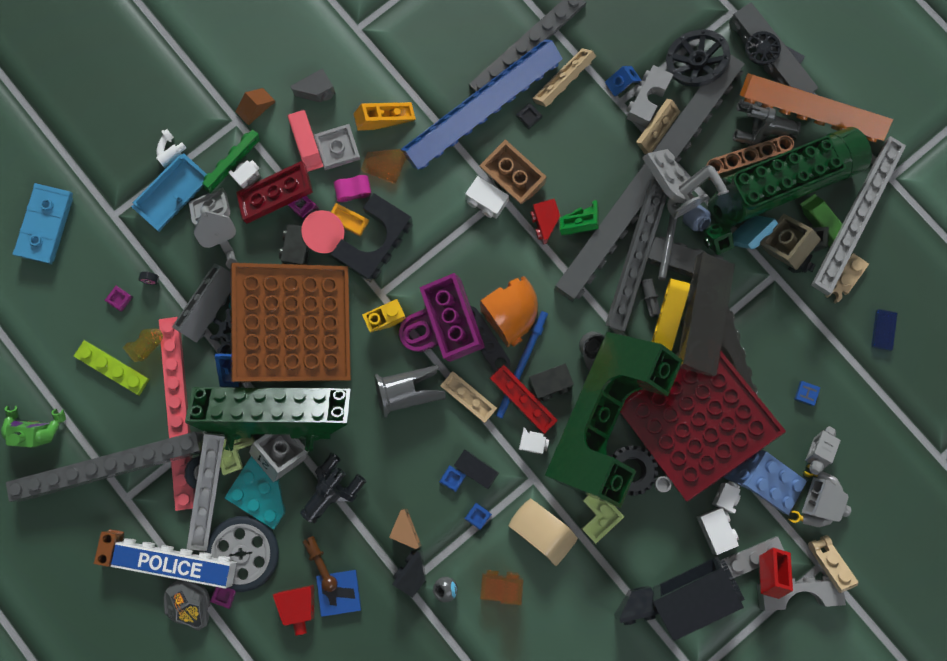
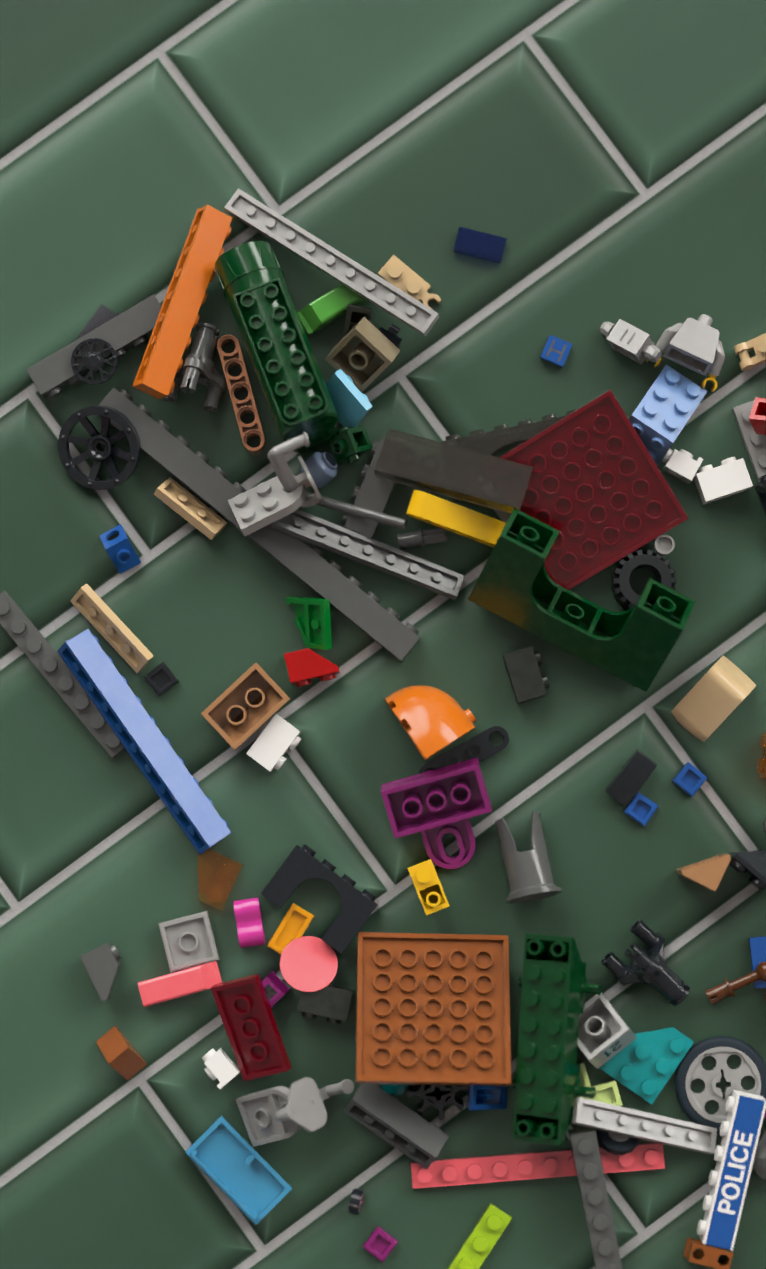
camera: 85 degrees left, 5 degrees up
(144, 345) = (444, 1202): clear yellow leg -> none
(168, 156) = (183, 1168): white plant -> none
(234, 157) = (193, 1079): green plate -> none
(381, 115) = (149, 875): light orange slope -> none
(468, 397) = (538, 782): tan plate -> none
(523, 399) = (546, 712): red plate -> none
(533, 442) = (601, 703): white window -> none
(536, 330) = (455, 688): blue bar -> none
(589, 347) = (482, 621): dark grey cap -> none
(606, 518) = (706, 624): yellowish green plate -> none
(655, 83) = (164, 529): light grey arch -> none

